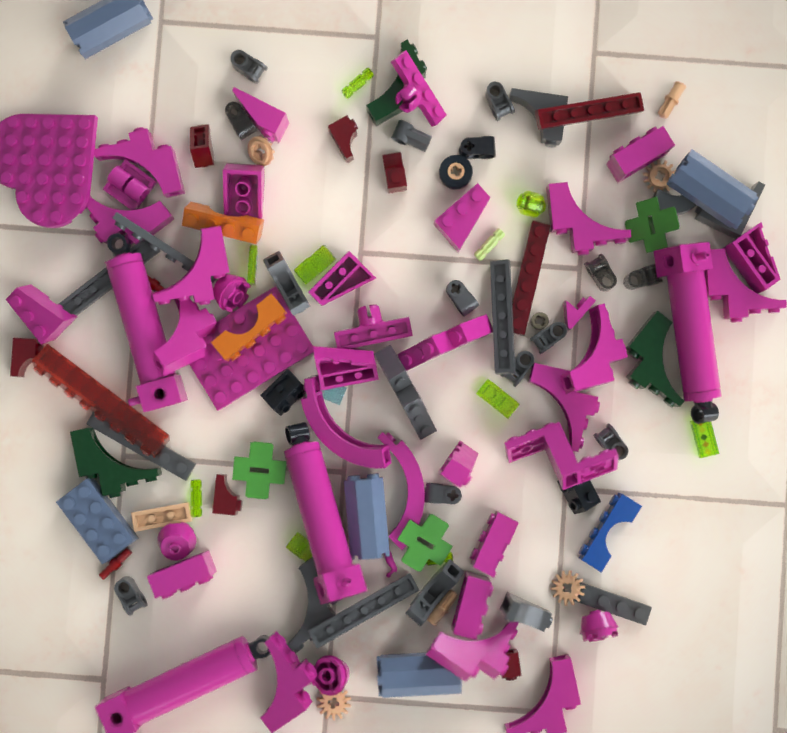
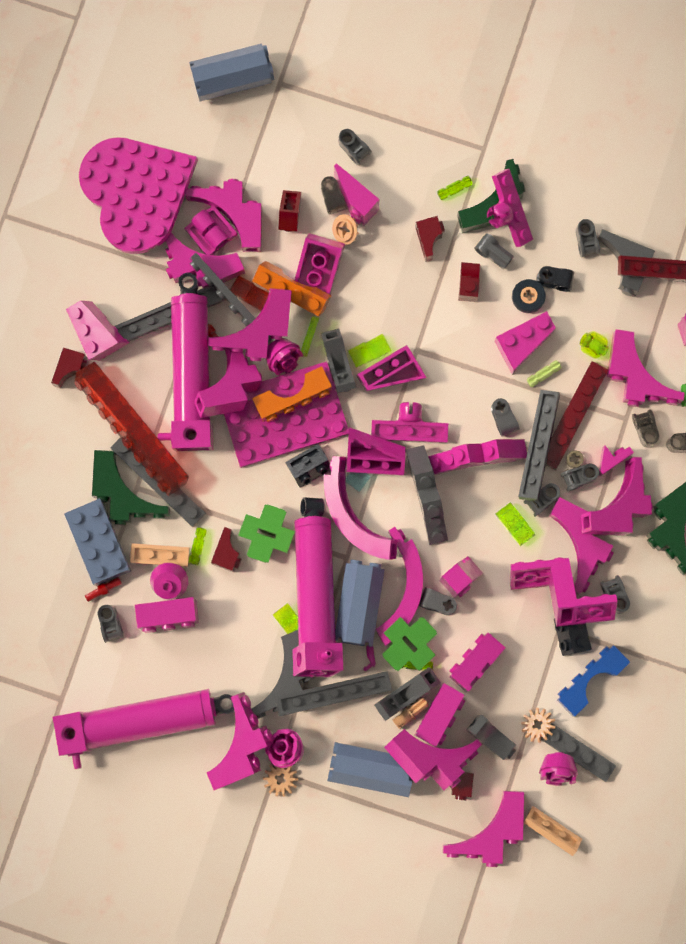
camera: 15 degrees right, 5 degrees down
(182, 237) = (249, 293): none -> clear red slope
(606, 686) = (552, 831): none -> light nougat plate

